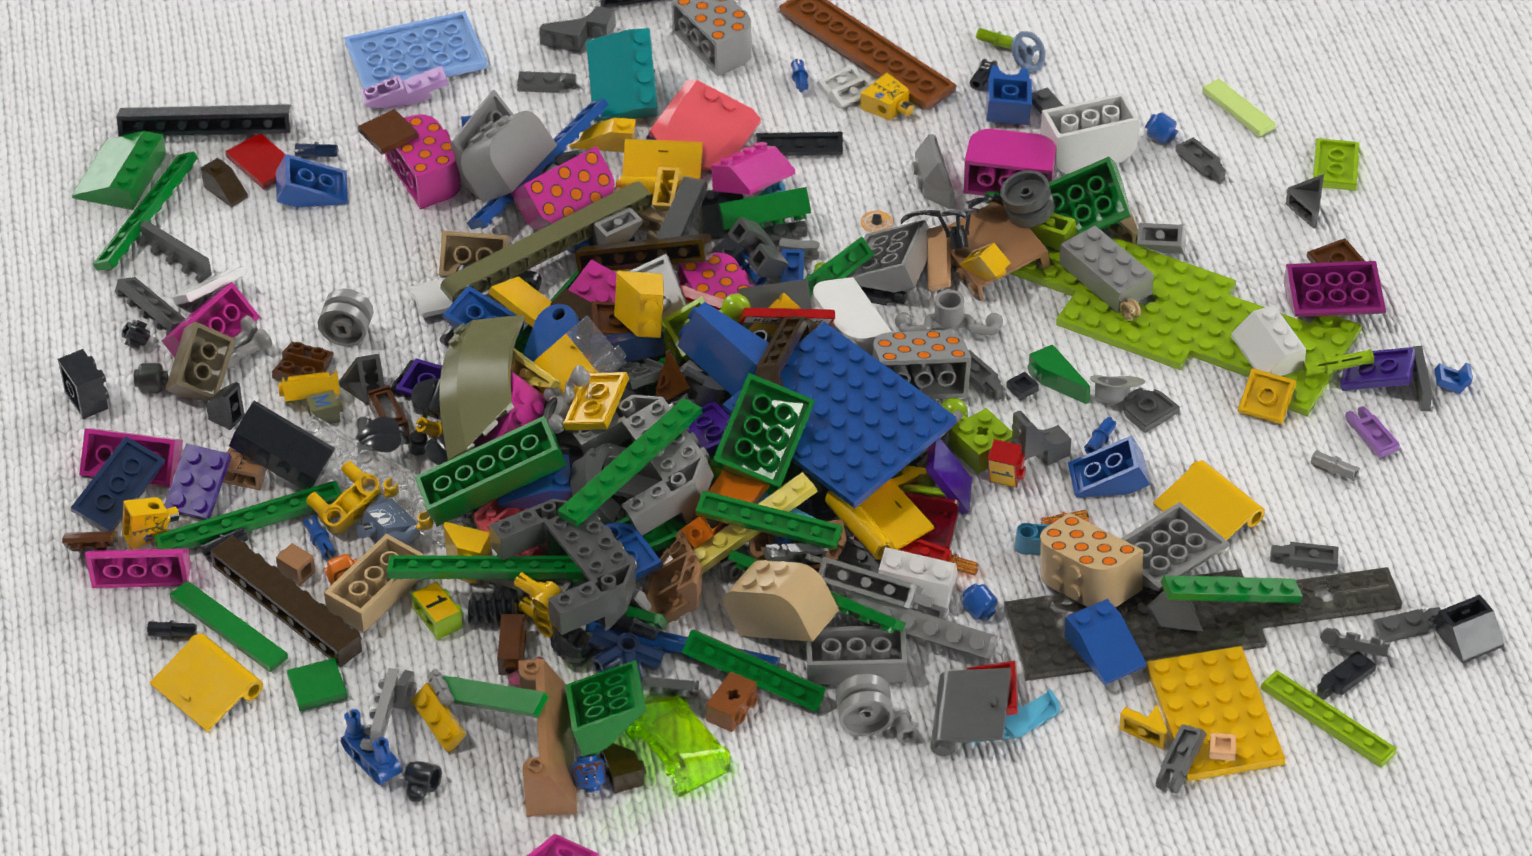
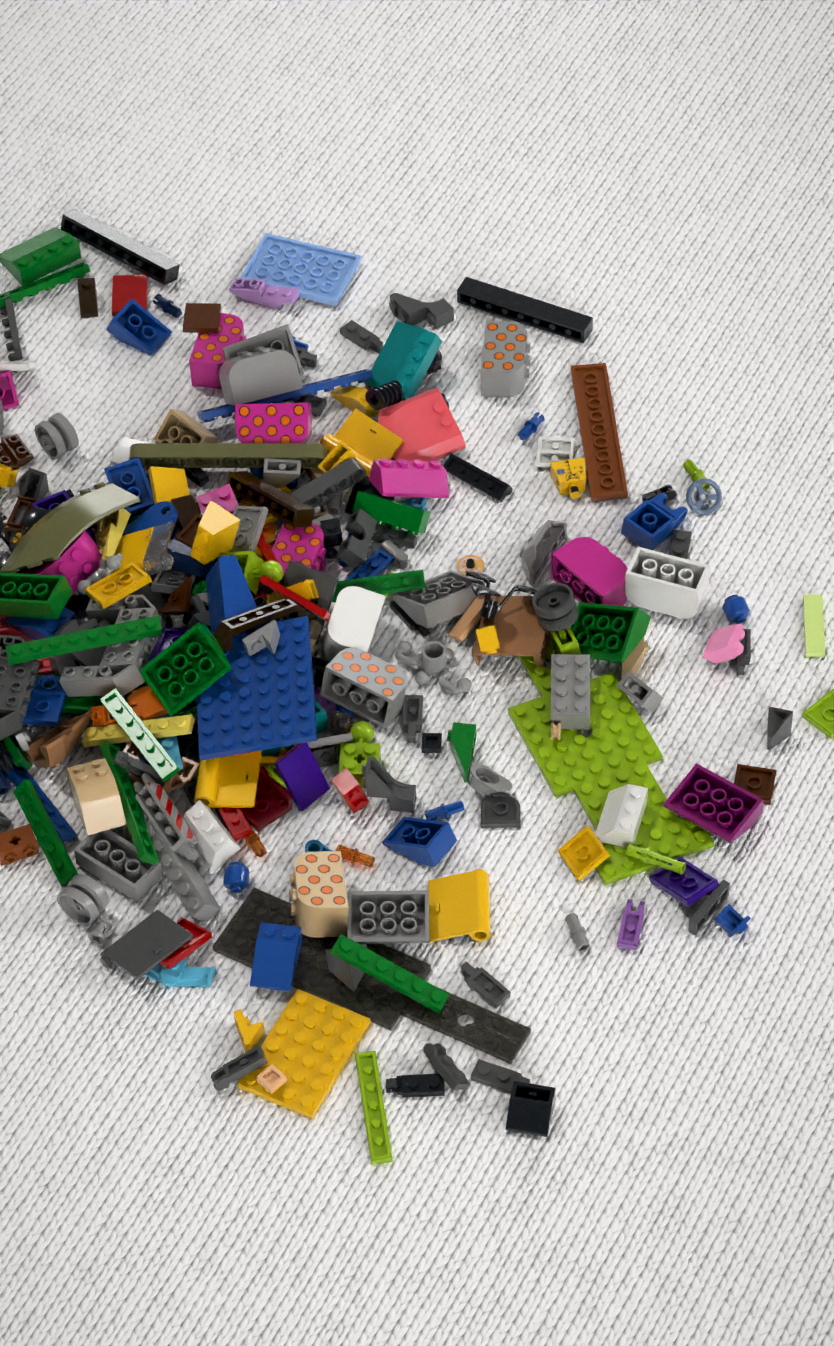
camera: 40 degrees right, 5 degrees up
(645, 111) = (384, 395): none -> black piece
(812, 359) = (264, 637): none -> light grey slope
(1187, 159) = (724, 644): none -> bright pink slope

